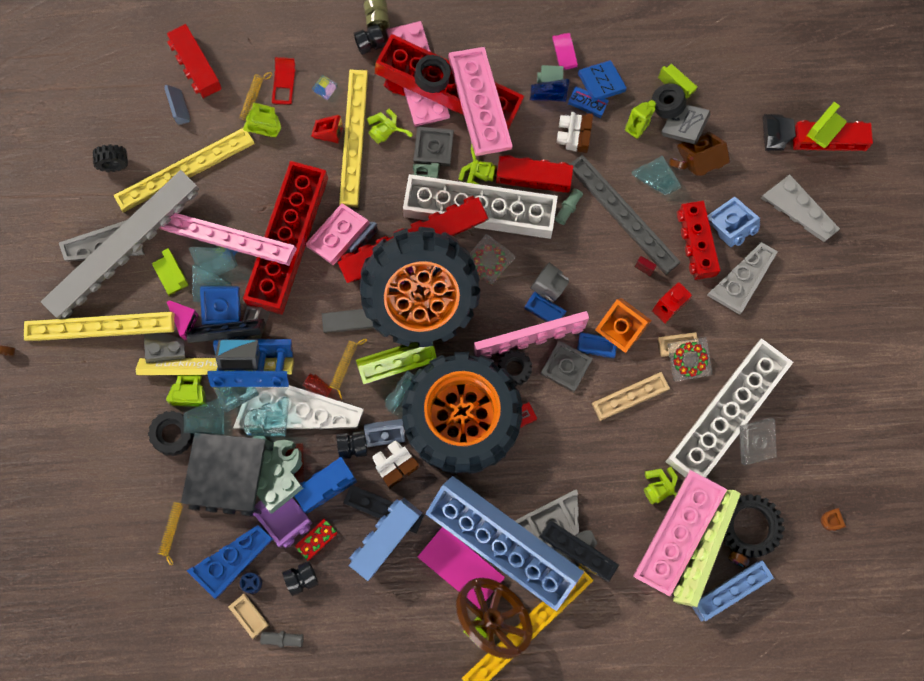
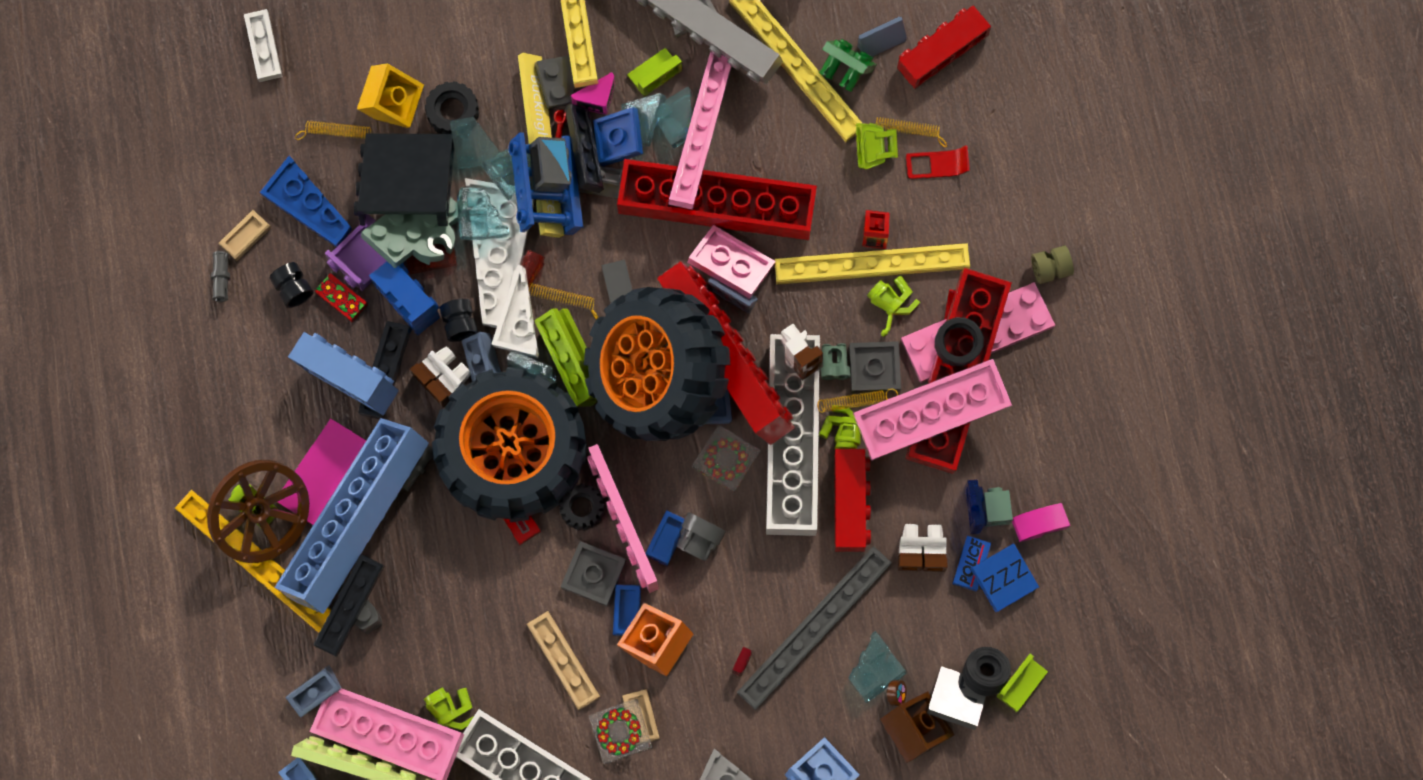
camera: 85 degrees right, 0 degrees up
(83, 585) = (263, 45): none -> white plate
(149, 482) = (390, 95): none -> yellow slope
(184, 131) = (840, 52): none -> green plate
(187, 394) = (501, 118): lime piece -> none
(200, 349) = (558, 117): none -> red hand
(247, 580) = (282, 225): dark blue wheel -> none
(324, 87) = (938, 216): clear light blue tile -> none
(365, 399) = (516, 324): none -> white wing
(369, 39) = (1012, 260): black wheel -> none
(425, 184) = (798, 353): none -> hips
(460, 179) = (824, 405): none -> yellow piece
(561, 511) = (397, 584): light grey wing -> none
(568, 206) = (813, 552): sand green pin -> none
(638, 590) = (314, 691): none -> sand blue slope
(640, 118) = (954, 634): lime piece -> none
(673, 300) = (695, 702): red torso -> none
(699, 240) = (788, 730): red brick -> none

